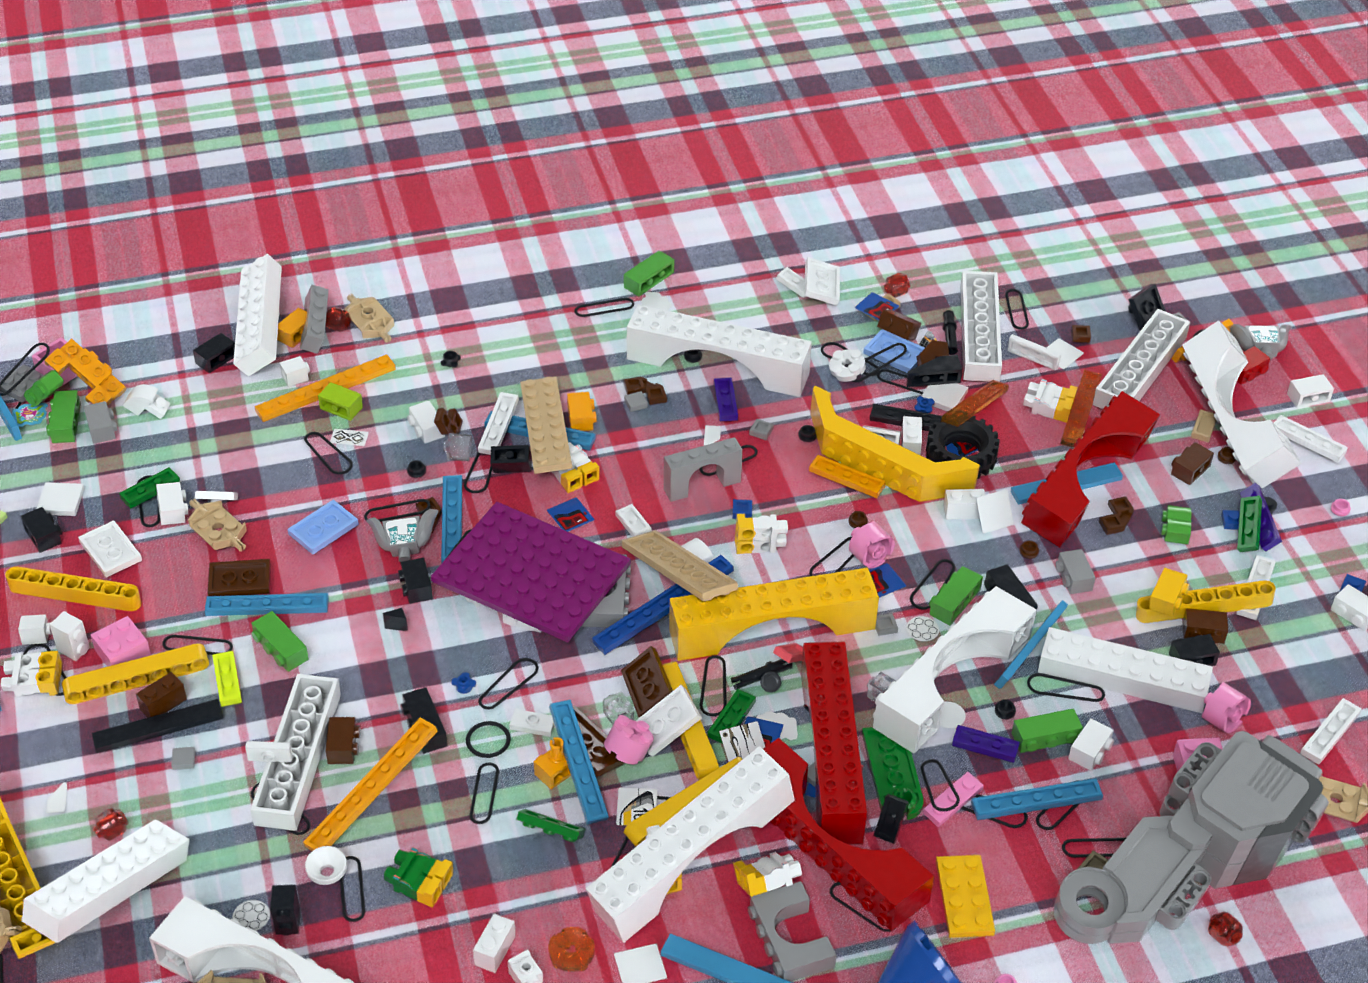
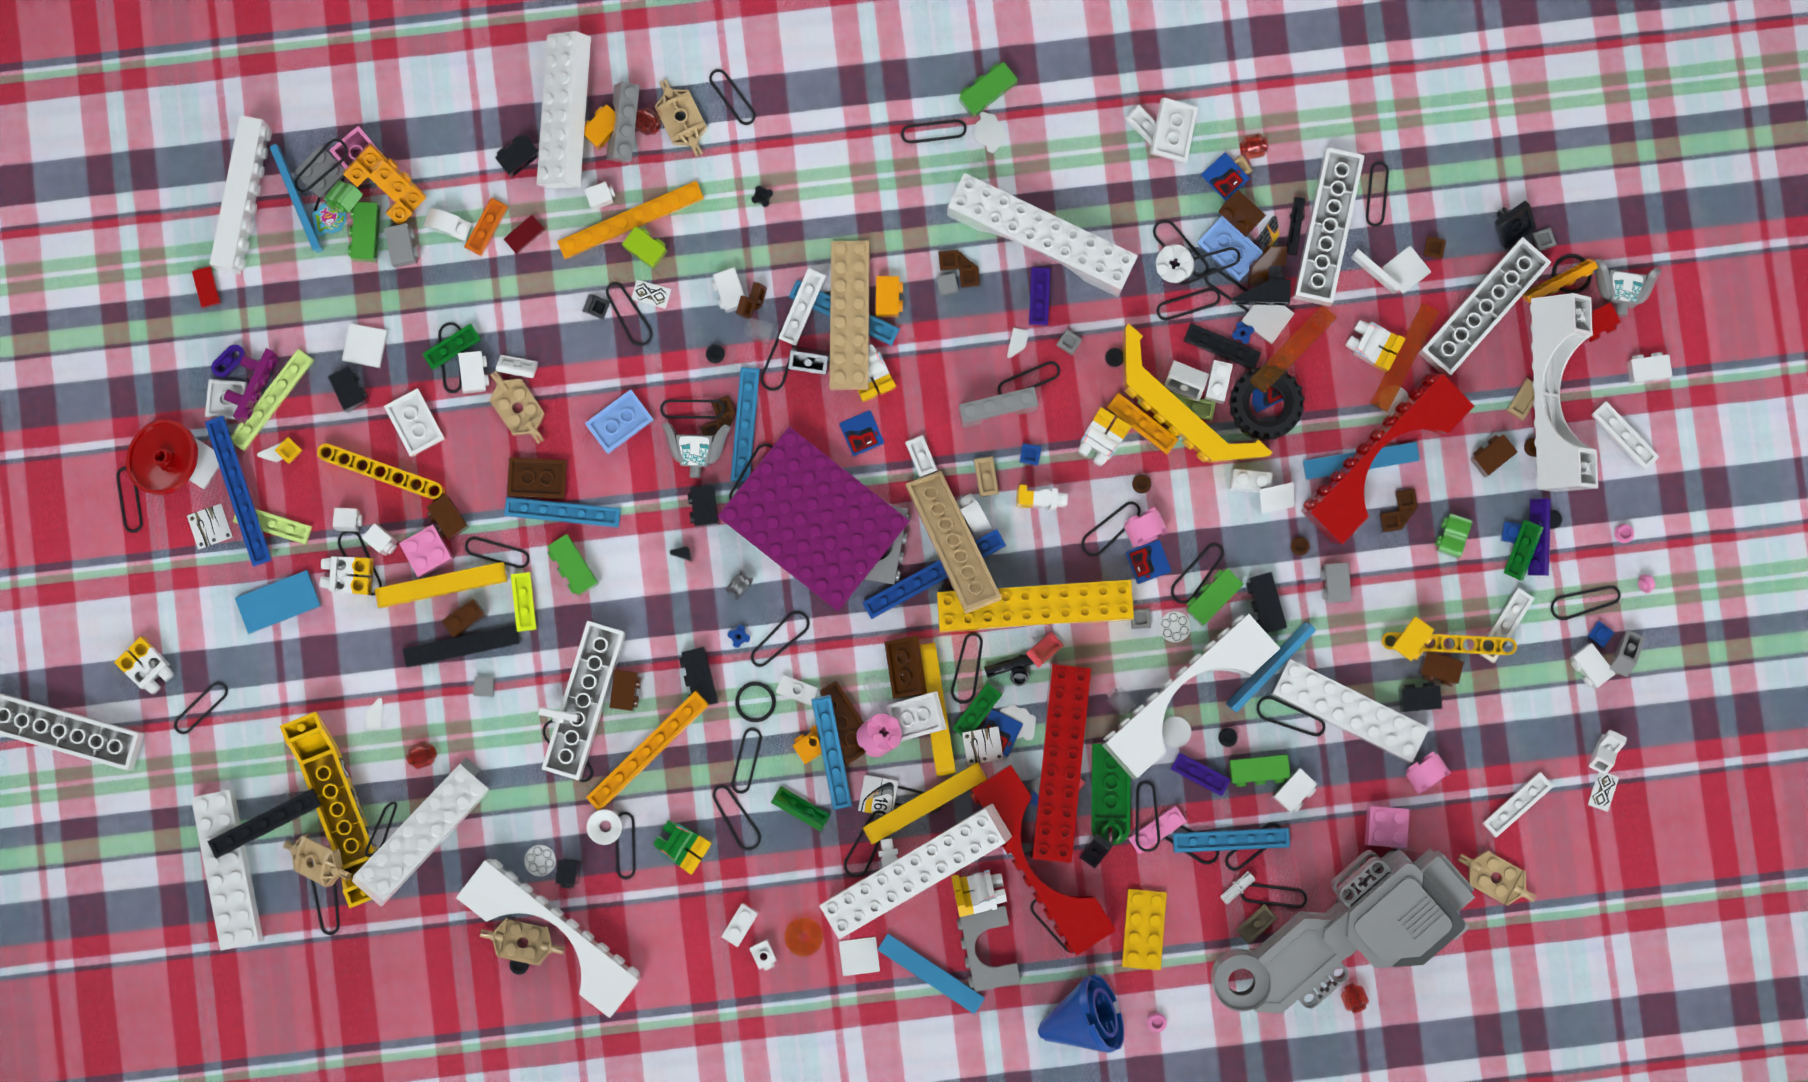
camera: 10 degrees right, 40 degrees up
(145, 616) = (447, 517): none -> reddish brown brick
(184, 405) = (486, 226): none -> orange tile
(222, 406) = (524, 234): none -> dark red tile
(295, 449) = (596, 306): none -> black slope
(426, 317) = (731, 109): none -> black piece
(459, 636) = (739, 584): none -> flat silver wheel
(486, 840) = (727, 822): none -> black piece
(702, 528) = (986, 476): none -> tan plate
(812, 487) = (1099, 441): none -> white hips
(864, 389) = (1186, 296): none -> black piece
(1058, 840) = (1237, 887): none -> white axle
(1323, 557) = (1584, 592): none -> black piece

